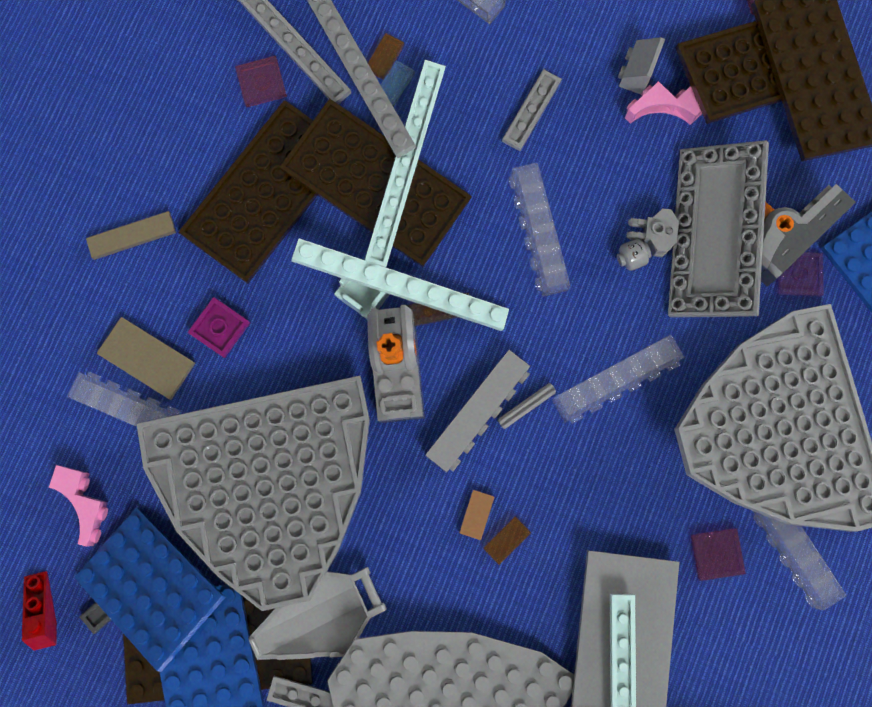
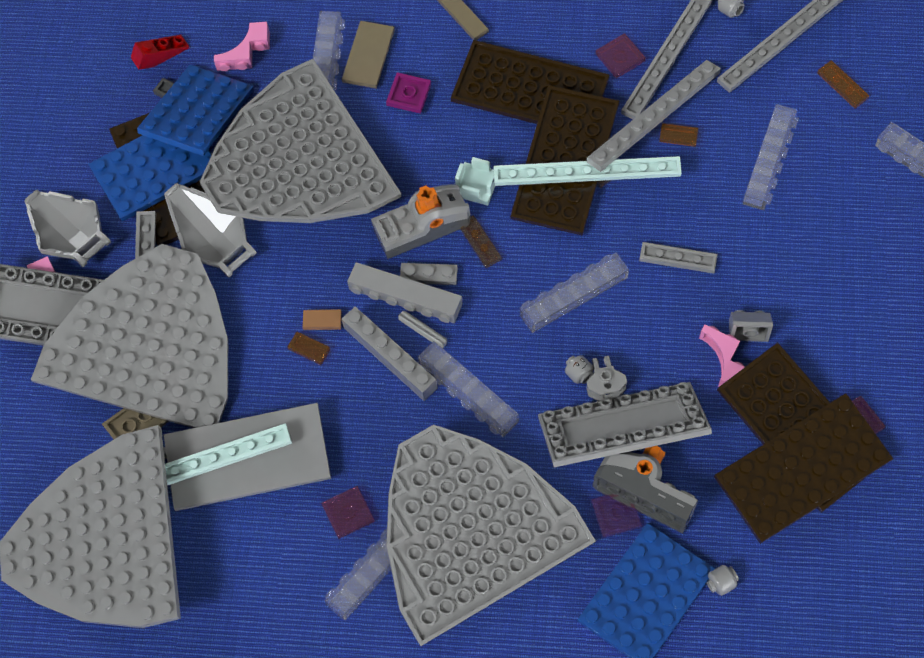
camera: 75 degrees right, 15 degrees down
(397, 81) = (656, 147): clear light blue plate -> none
(400, 284) = (485, 202): light aqua plate -> none
(460, 378) = (430, 273): none -> light grey plate
(548, 451) = (389, 353): none -> light grey brick

